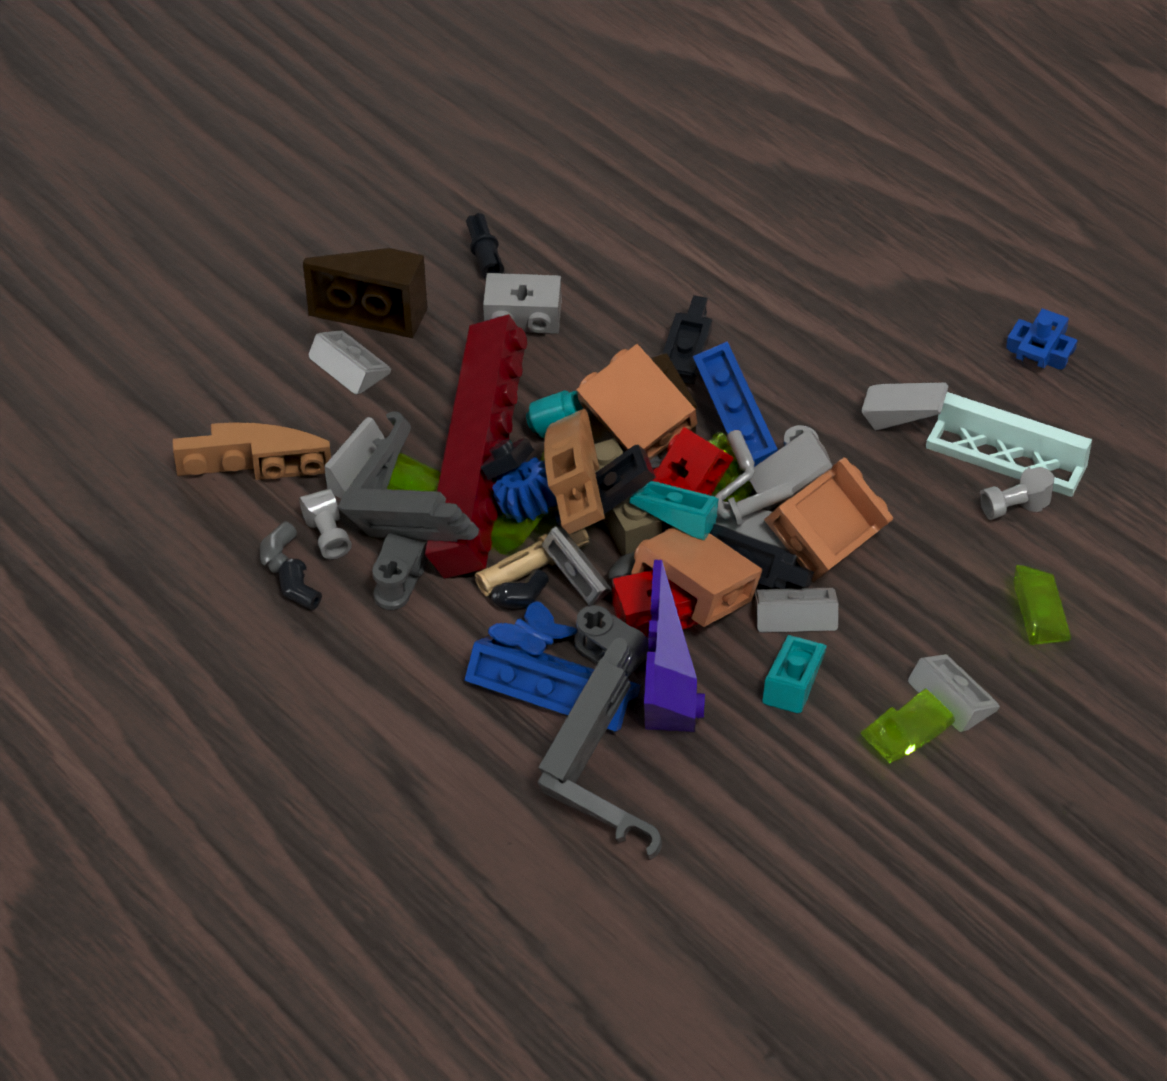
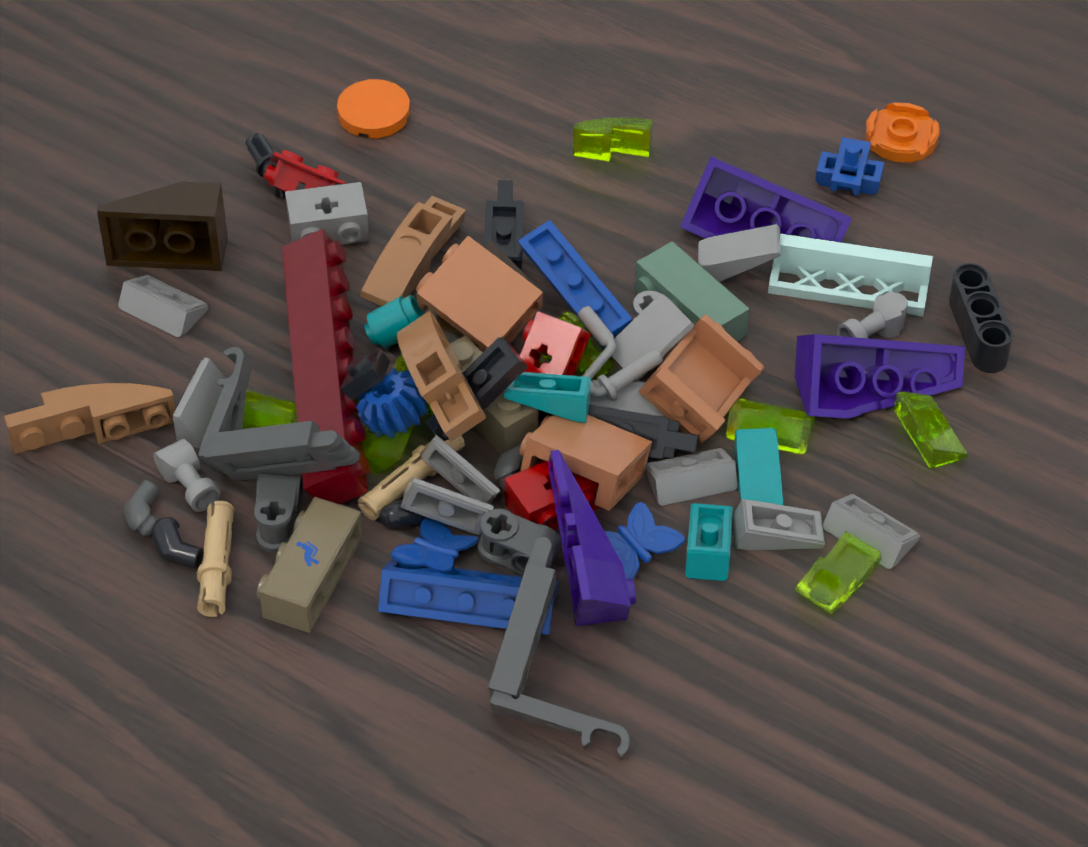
camera: 15 degrees left, 0 degrees up
(325, 616) = (214, 571): none -> tan pin
(414, 625) = (310, 564): none -> dark tan brick
(498, 254) = (291, 171): none -> red hinge
(549, 593) = (444, 505): none -> light grey slope
(592, 347) = (411, 249): none -> medium nougat slope
(598, 206) = (373, 108): none -> orange tile
(724, 658) = (641, 536): none -> blue piece
(810, 269) = (621, 134): none -> clear neon green slope
(847, 433) = (691, 289): none -> sand green brick
(861, 615) = (758, 465): none -> teal slope
(862, 672) = (776, 527): none -> light grey slope
(886, 575) = (791, 425): none -> clear neon green slope
(920, 352) = (739, 201): none -> dark purple wedge
(987, 542) = (863, 374): none -> dark purple wedge
(1107, 313) = (902, 132): none -> orange tile
(1124, 508) = (980, 318): none -> black beam

